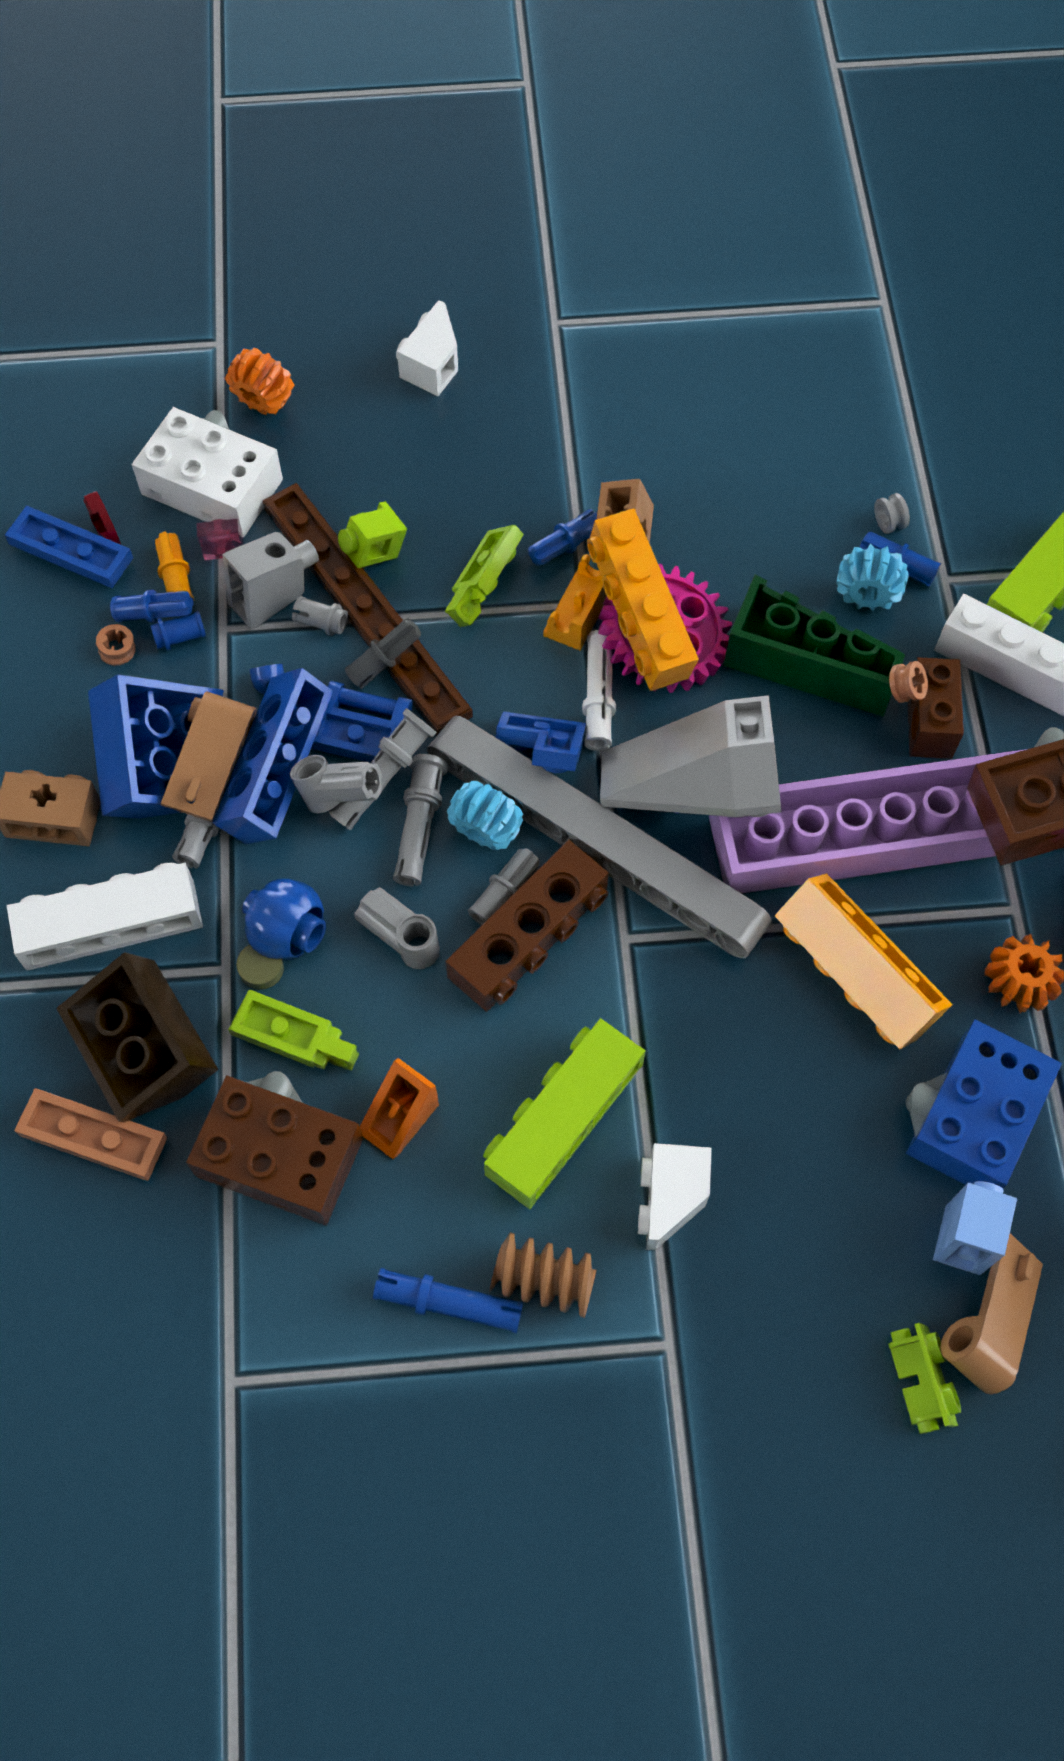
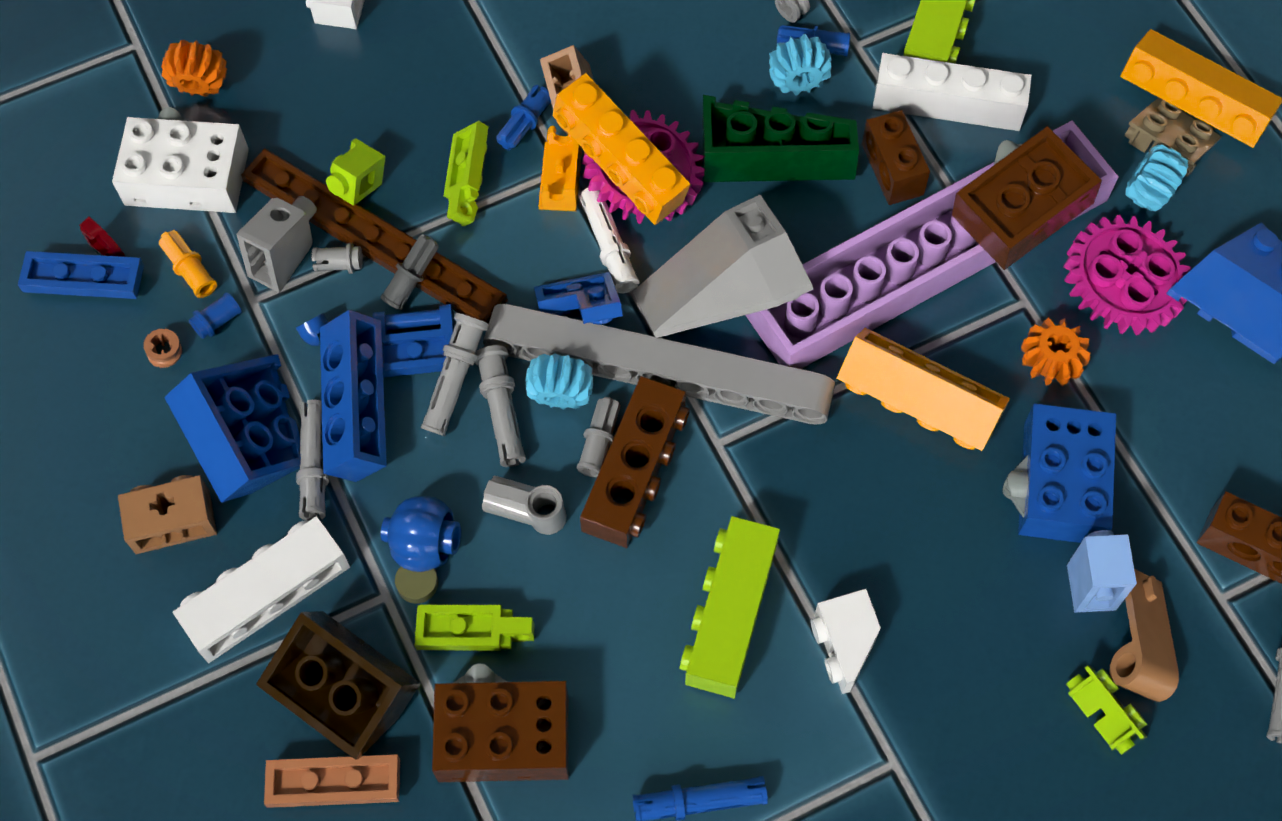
camera: 20 degrees left, 0 degrees up
(151, 606) = (182, 302): blue axle -> none
(208, 754) = (295, 415): medium nougat door -> none
(218, 537) = (218, 221): clear pink plate -> none
(327, 784) = (411, 404): light grey piece -> none
(399, 1109) = (591, 656): orange slope -> none
(544, 1274) = (771, 745): medium nougat piece -> none
(908, 681) = (869, 143): nougat bush -> none

